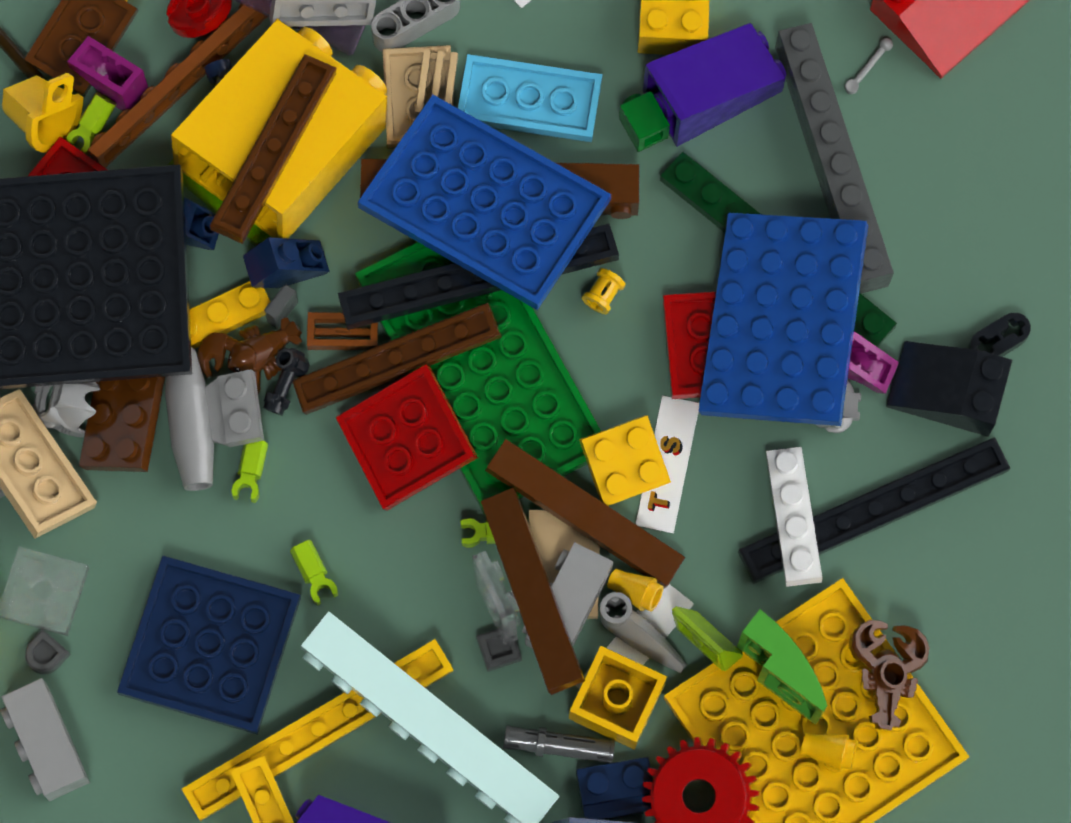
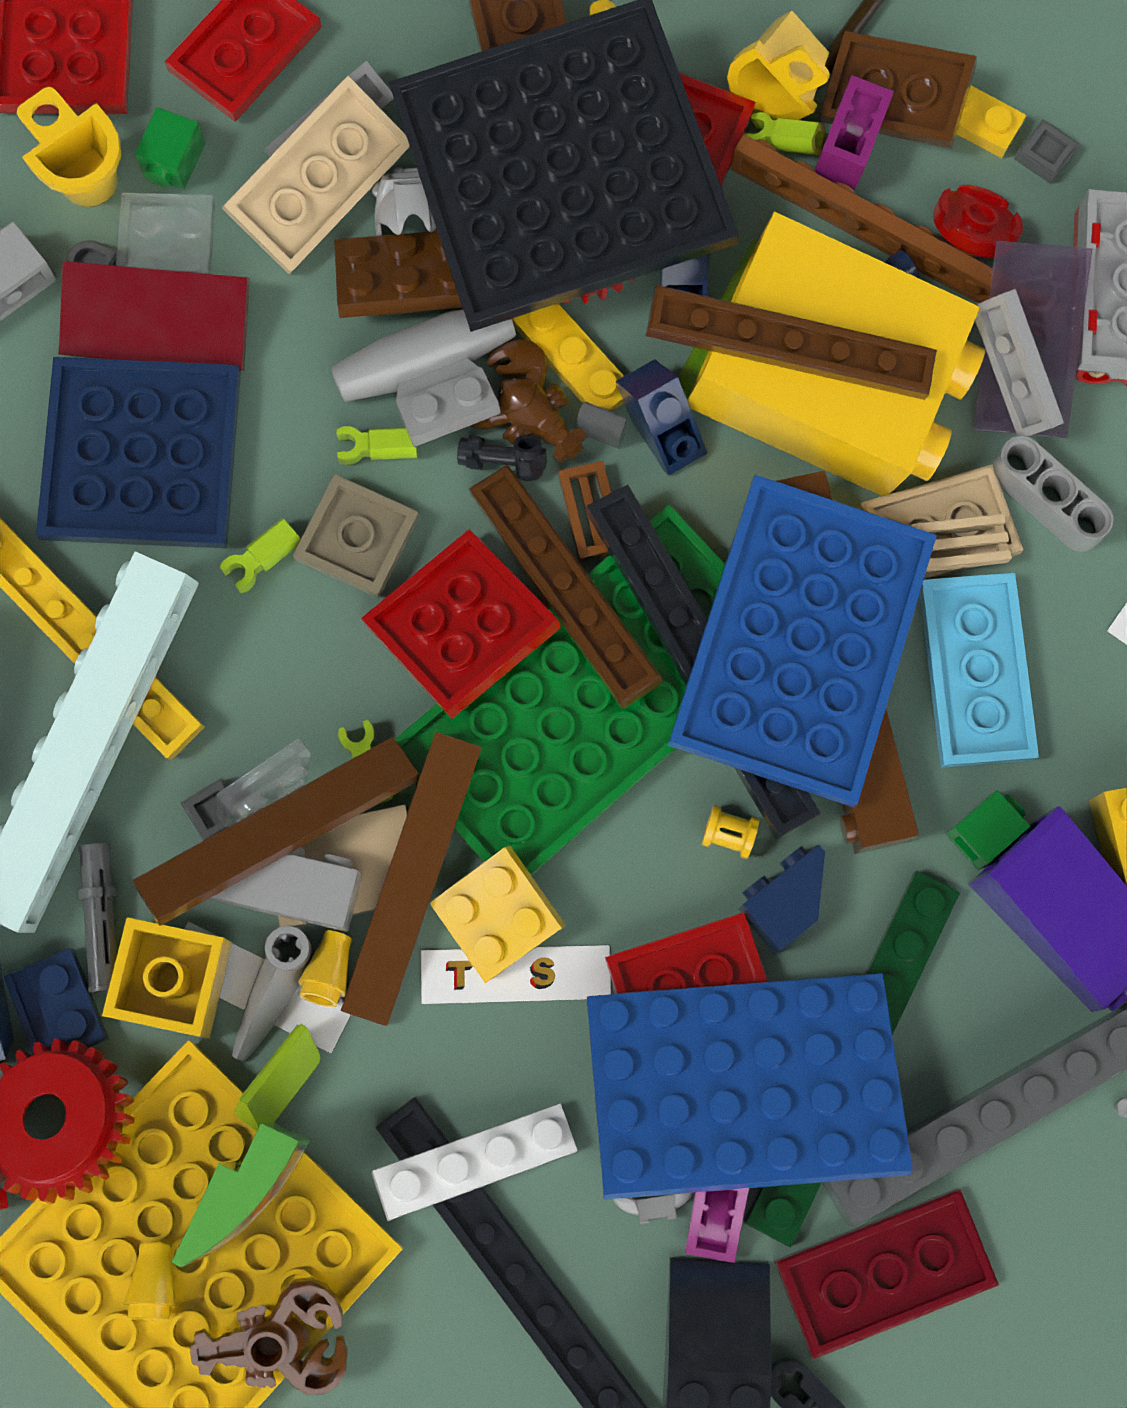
camera: 75 degrees right, 5 degrees up
(104, 611) = (152, 314): none -> dark red tile
(318, 499) = (356, 536): none -> dark tan plate
(663, 264) = (788, 903): none -> dark blue slope
(926, 268) = (886, 1273): none -> dark red tile

